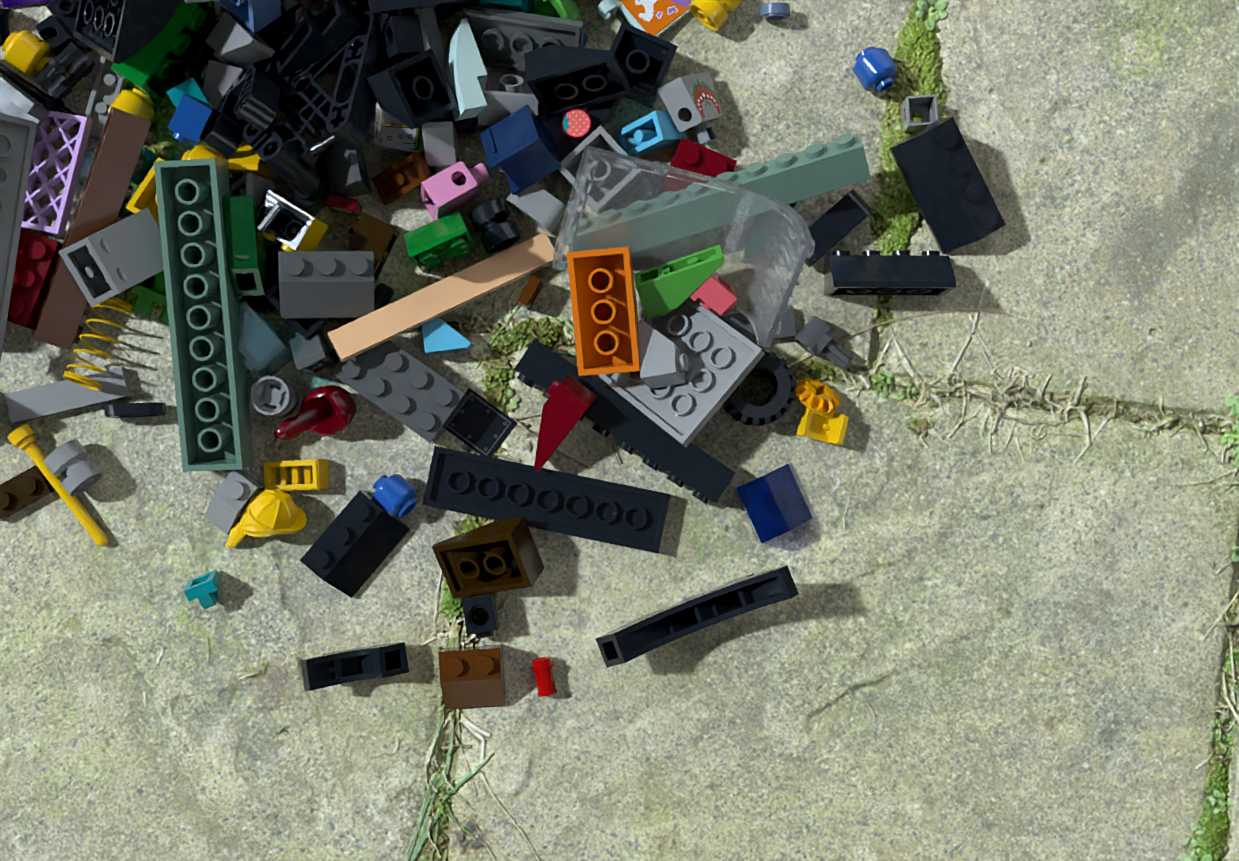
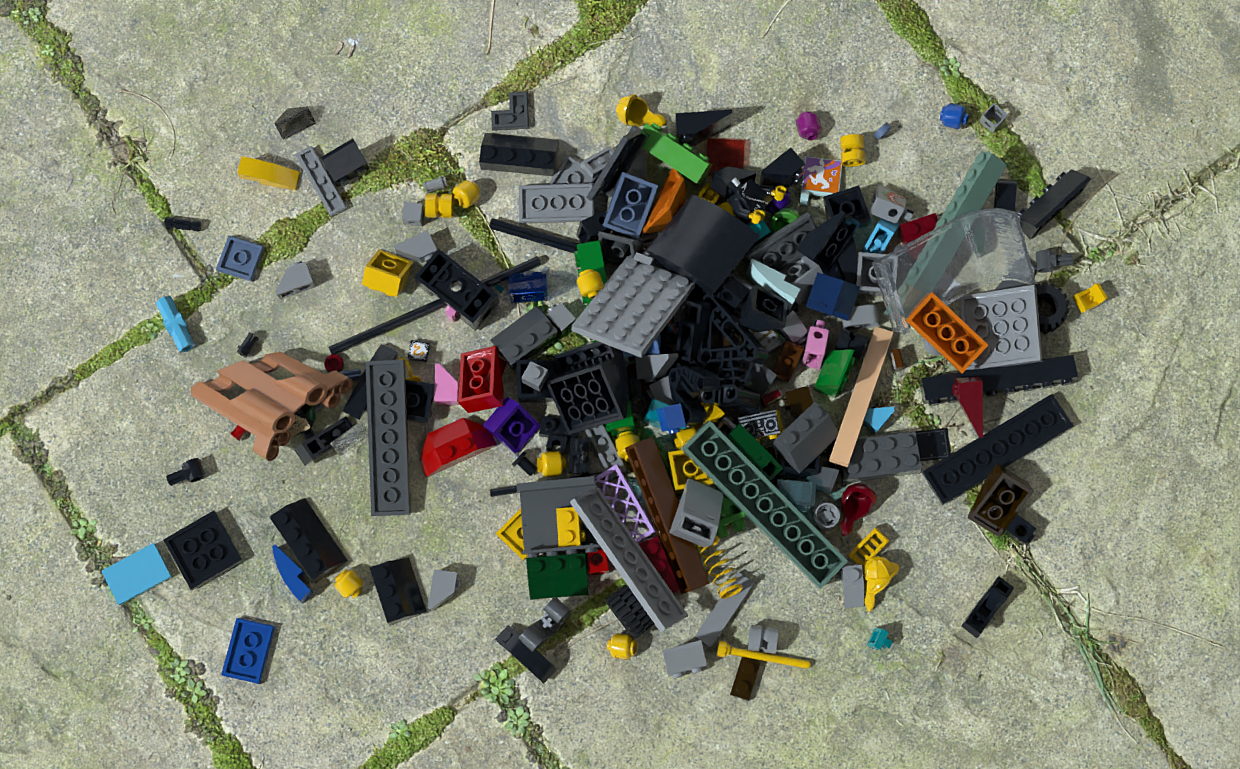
camera: 35 degrees left, 10 degrees down
(135, 410) = (761, 589): black tile -> none
(276, 220) = (757, 426): black slope -> none
(355, 544) = (929, 552): black slope -> none
(395, 495) = (926, 512): blue head -> none
(472, 676) = (1045, 563): reddish brown slope -> none
(544, 676) = (1077, 533): red pin -> none
(576, 124) = (846, 262): tile -> none
(660, 359) = (991, 331): light grey slope -> none
(673, 282) = (962, 290): bright green slope -> none
(695, 614) = (1118, 436): black arch -> none
(716, 295) = (982, 281): coral brick -> none
(773, 503) = (1102, 356): clear blue slope -> none
(817, 396) = (1074, 286): light orange gear -> none
(947, 185) = (1039, 138): black slope -> none

